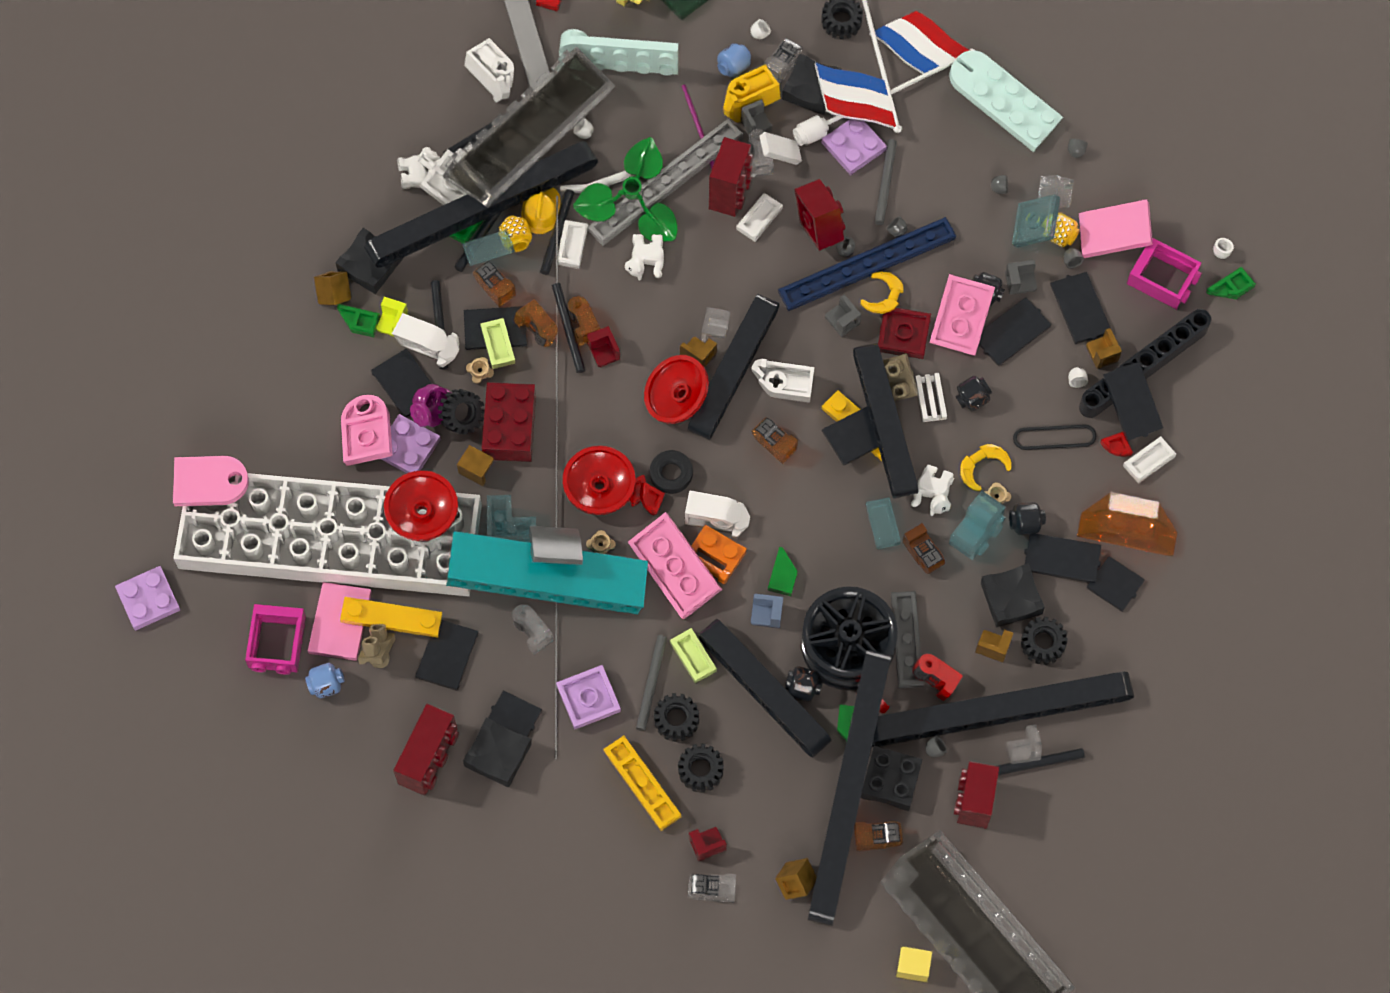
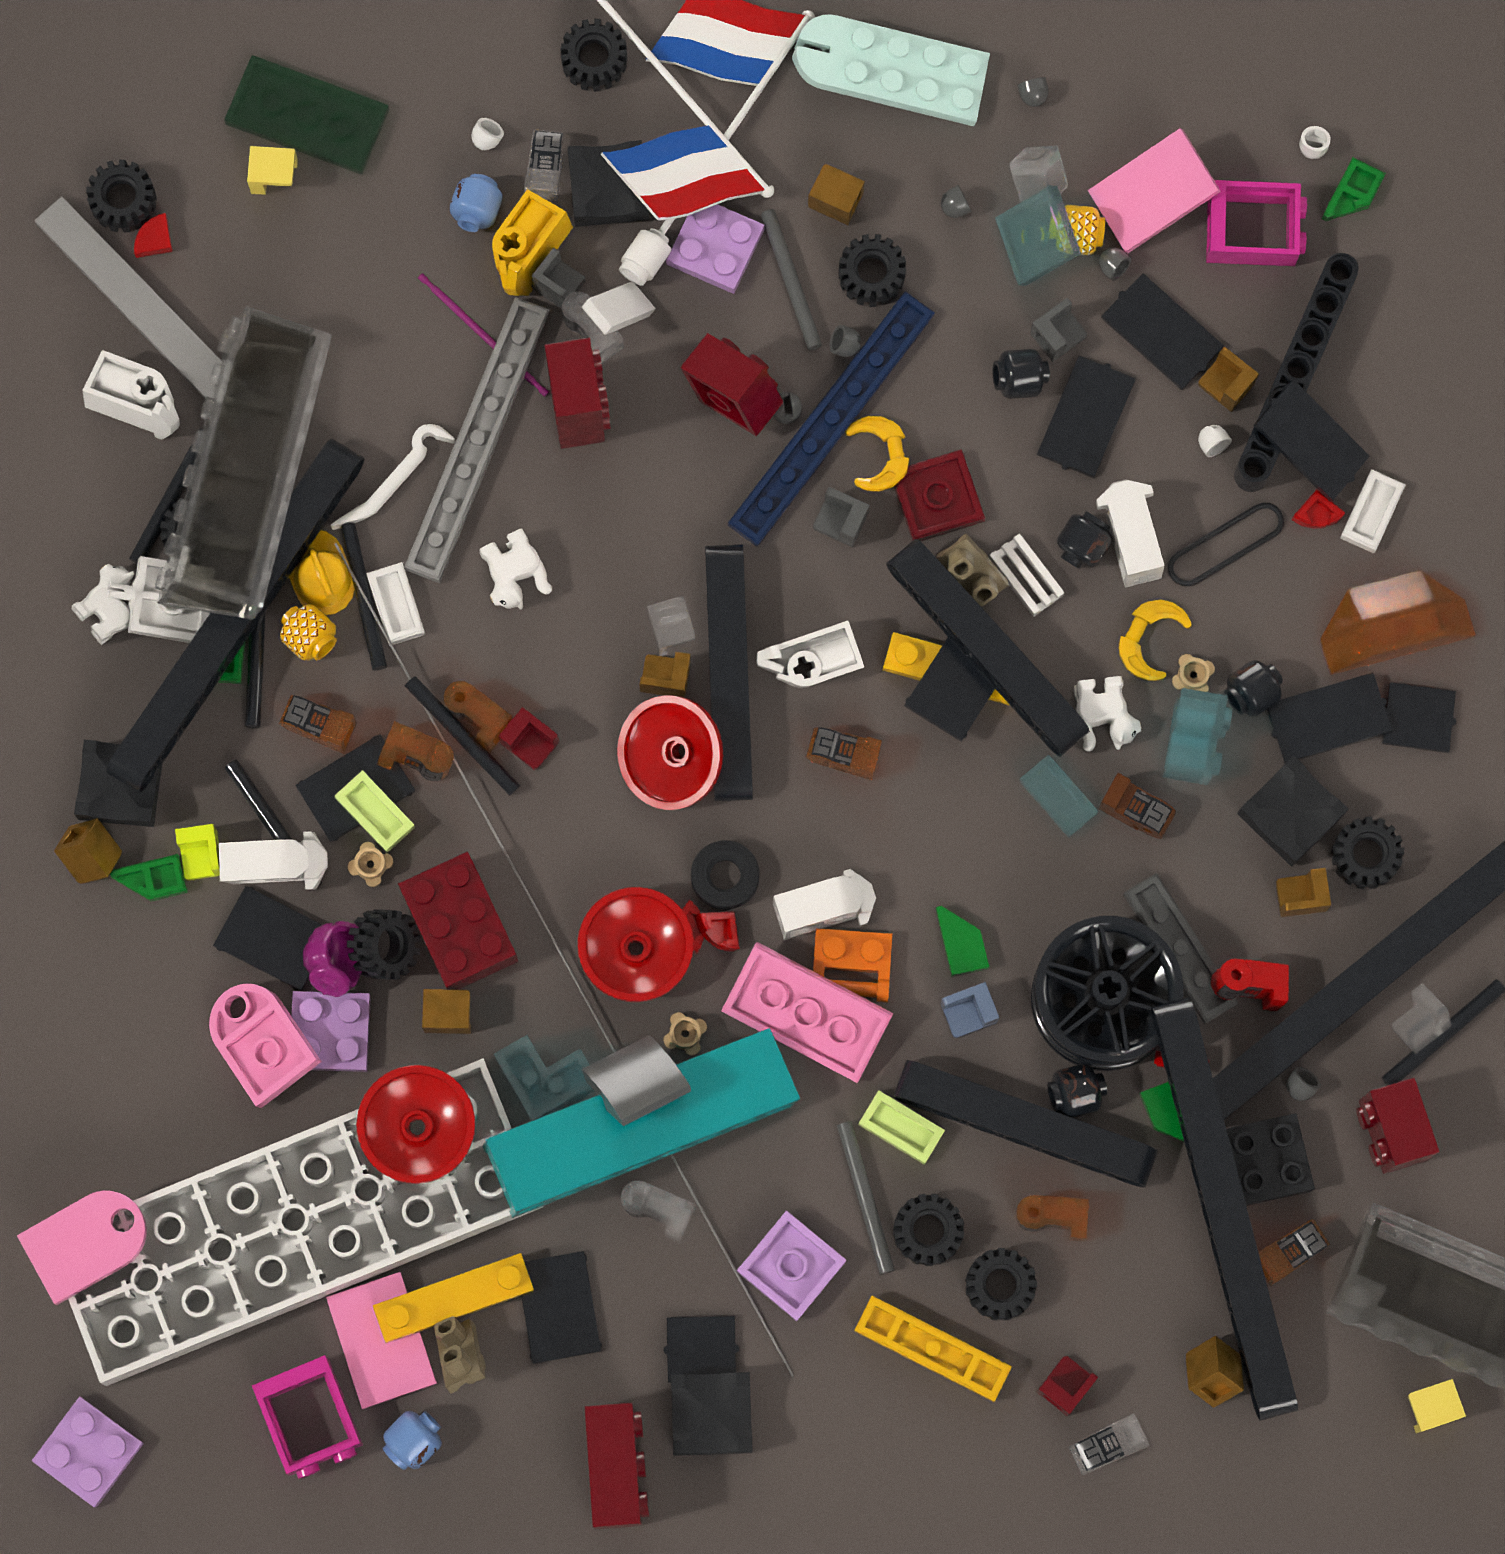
camera: 30 degrees left, 10 degrees up
(488, 247) = (283, 676): clear light blue tile -> none
(583, 129) = (319, 420): white hinge -> none
(623, 53) = (306, 280): light aqua plate -> none
(643, 161) = (402, 528): green plant -> none
(748, 741) = (1054, 1212): none -> clear orange leg
(759, 217) = (641, 425): white tile -> none
(935, 148) = (836, 194): none -> pearl gold panel
(935, 185) = (877, 249): none -> black tyre
(962, 314) = (1009, 431): bright pink tile -> none
(1003, 400) = (1132, 531): none -> white piece

